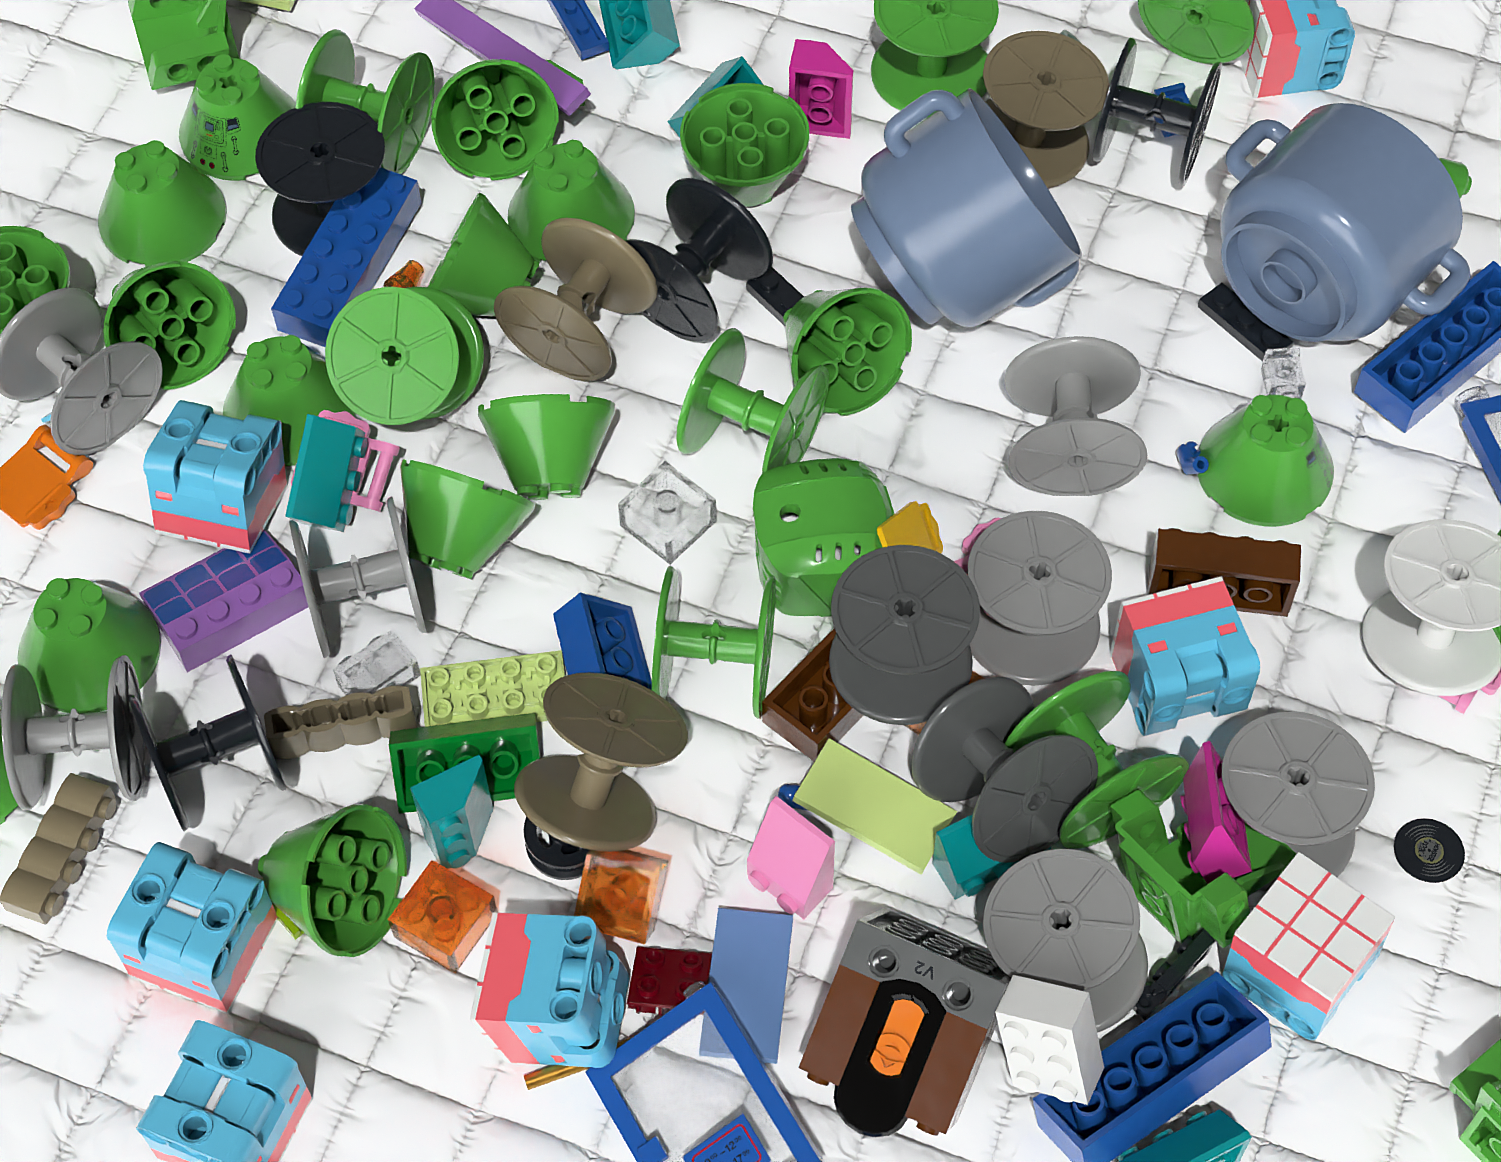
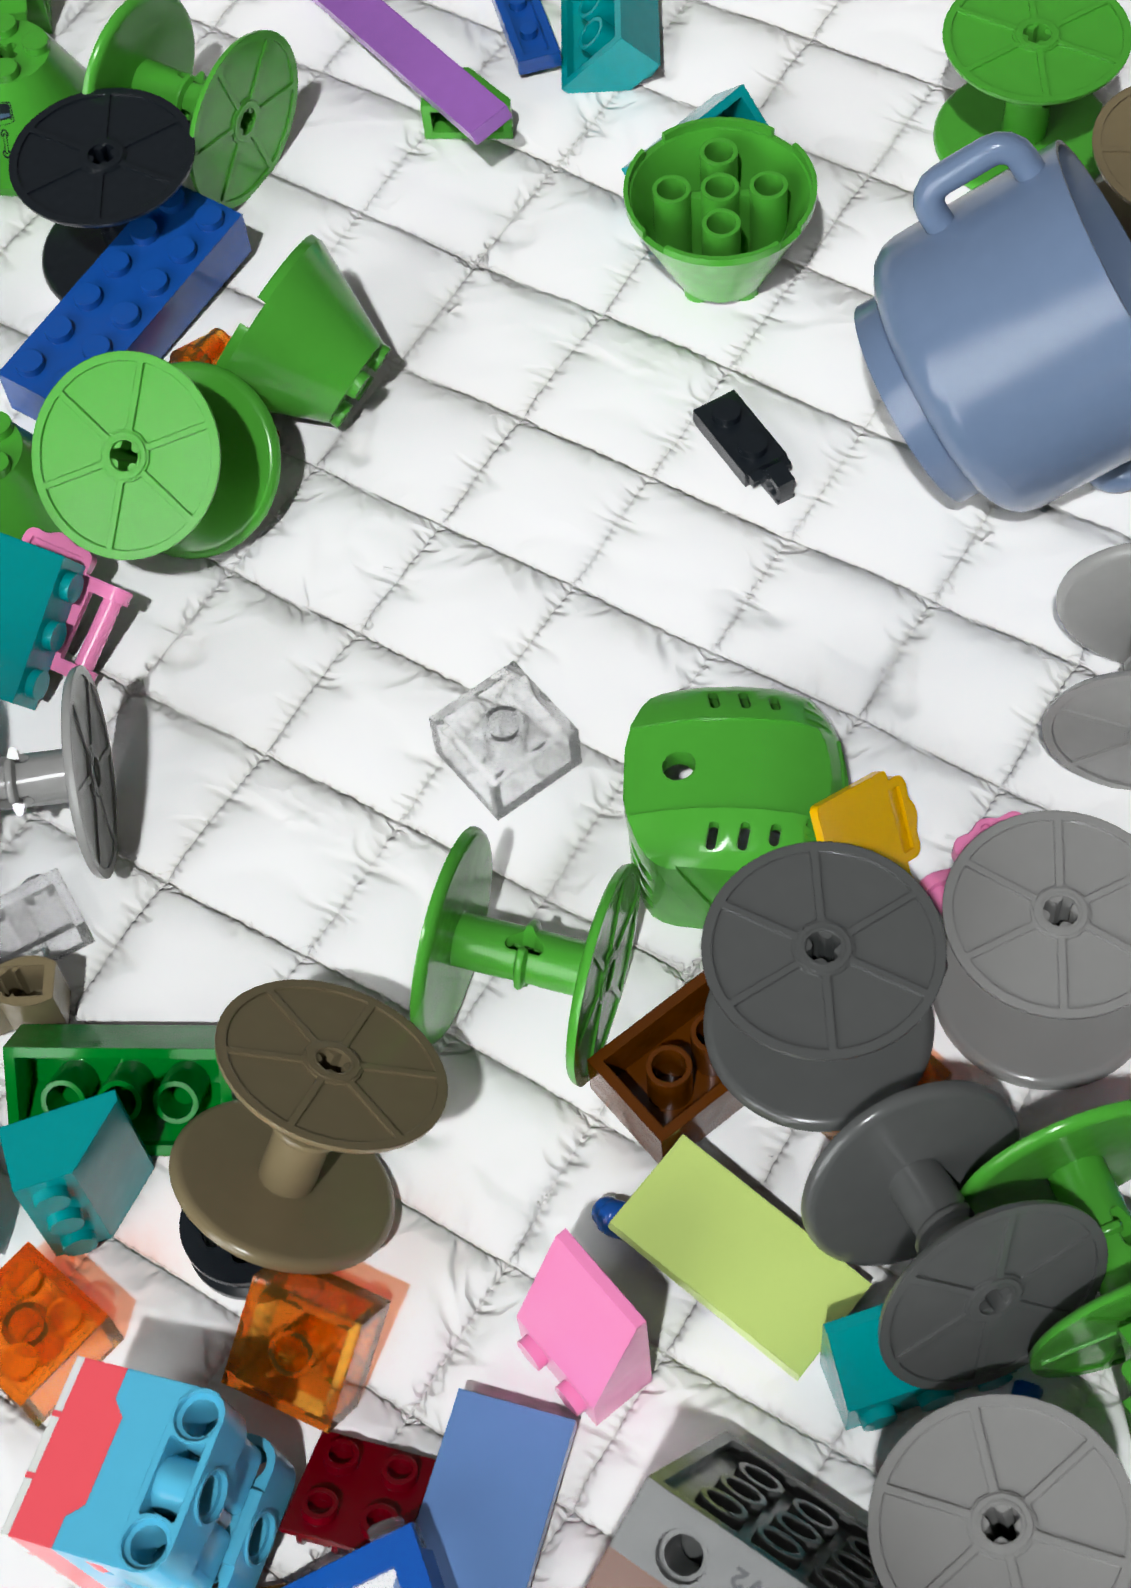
camera: 15 degrees right, 0 degrees up
(454, 520) = (183, 714): bright green cone -> none
(489, 688) = (183, 973): yellowish green tile -> none
(494, 119) = (367, 138): bright green cone -> none
(547, 440) = (342, 611): bright green cone -> none
(568, 184) = (458, 276): bright green cone -> none
(594, 270) = (465, 367): dark tan piece -> none
(601, 639) = (363, 926): blue slope -> none
(714, 234) = (652, 331): black piece -> none
(716, 394) = (607, 569): bright green piece -> none
(822, 88) = (849, 139): dark pink slope -> none
(856, 336) = (821, 523): bright green cone -> none

